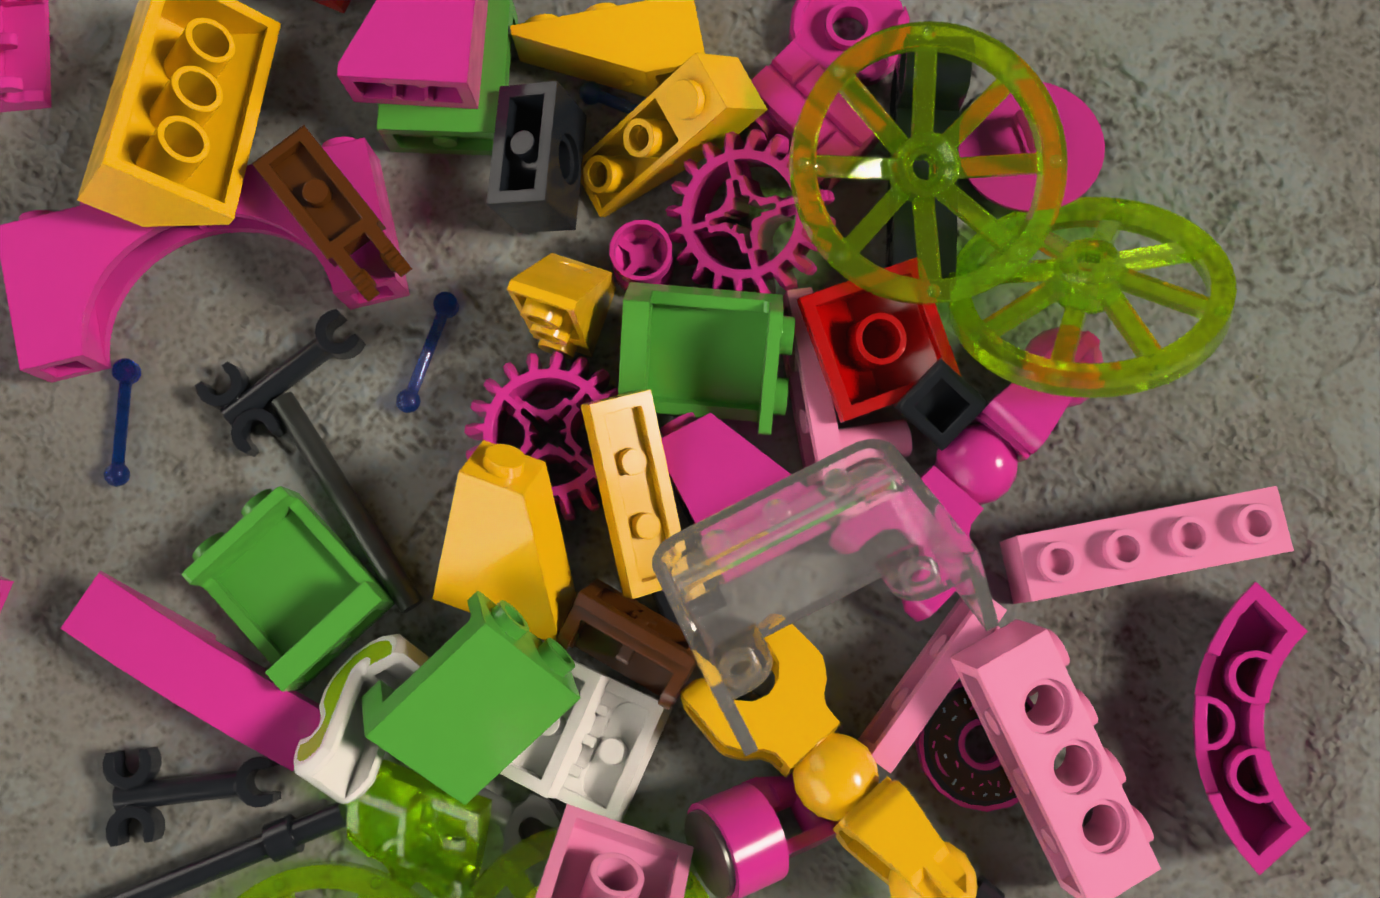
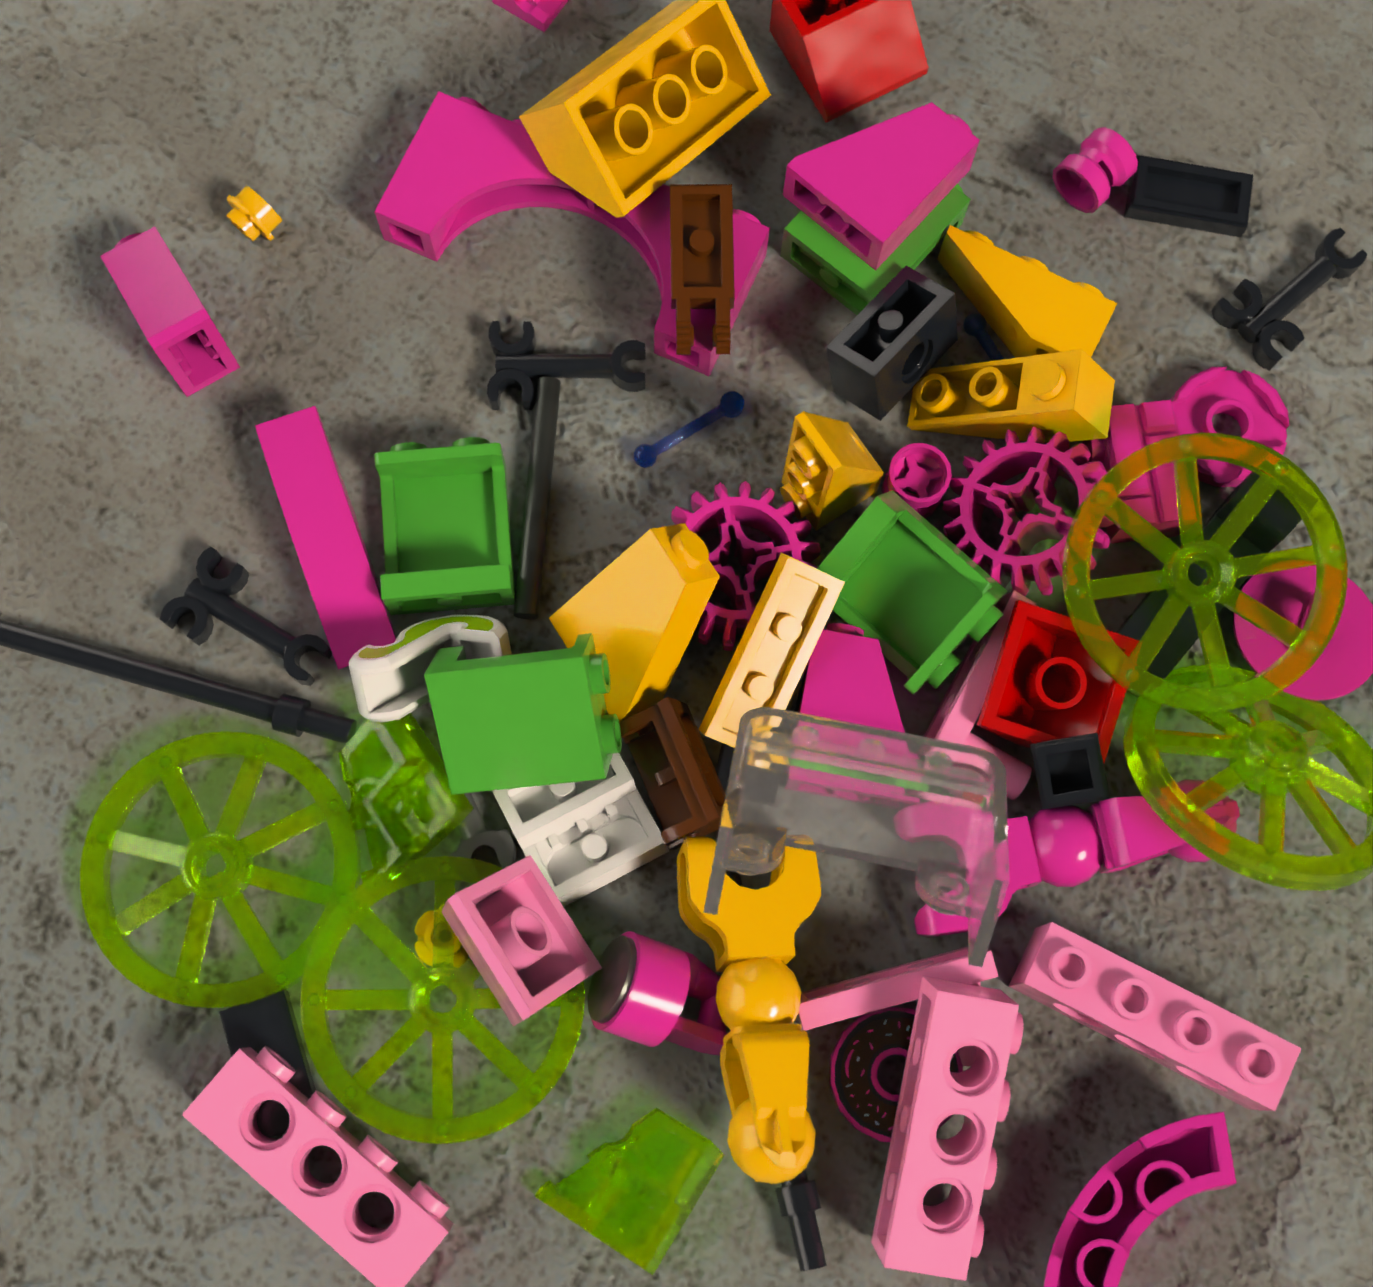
camera: 30 degrees right, 5 degrees down
(127, 373) = (445, 275): clear blue hinge -> none

